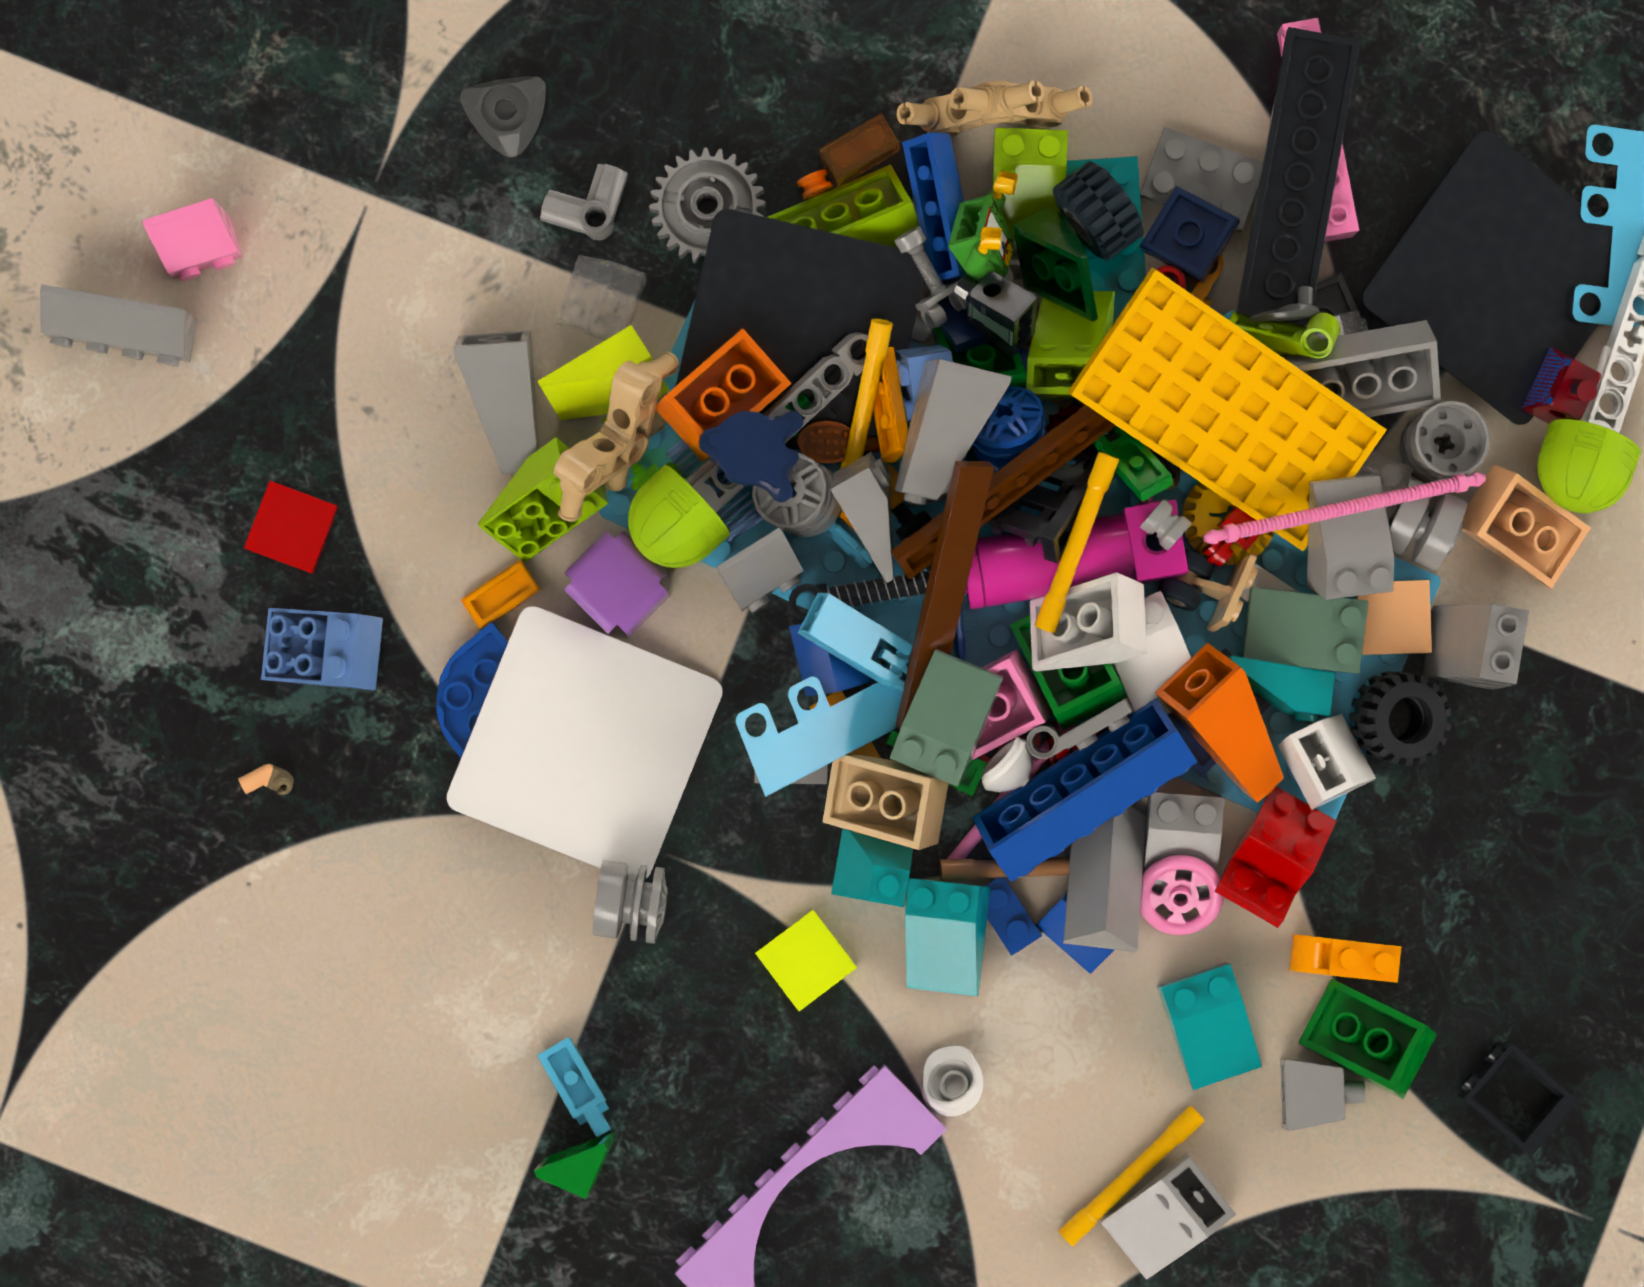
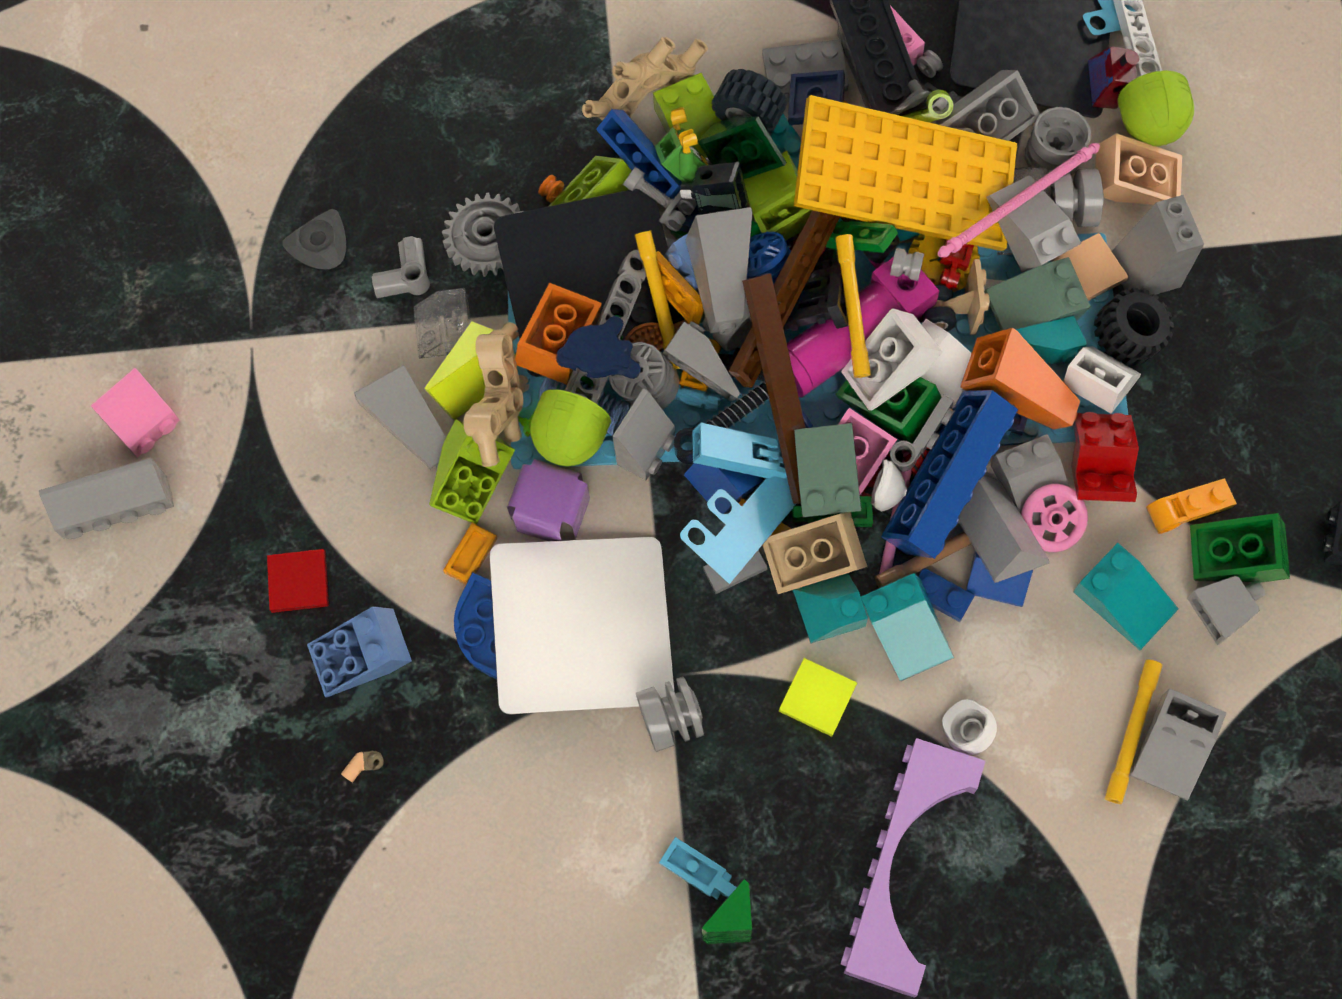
camera: 20 degrees left, 15 degrees down
(859, 150) = (570, 152): clear orange brick -> none
(1355, 252) = (929, 63): none -> light grey bush

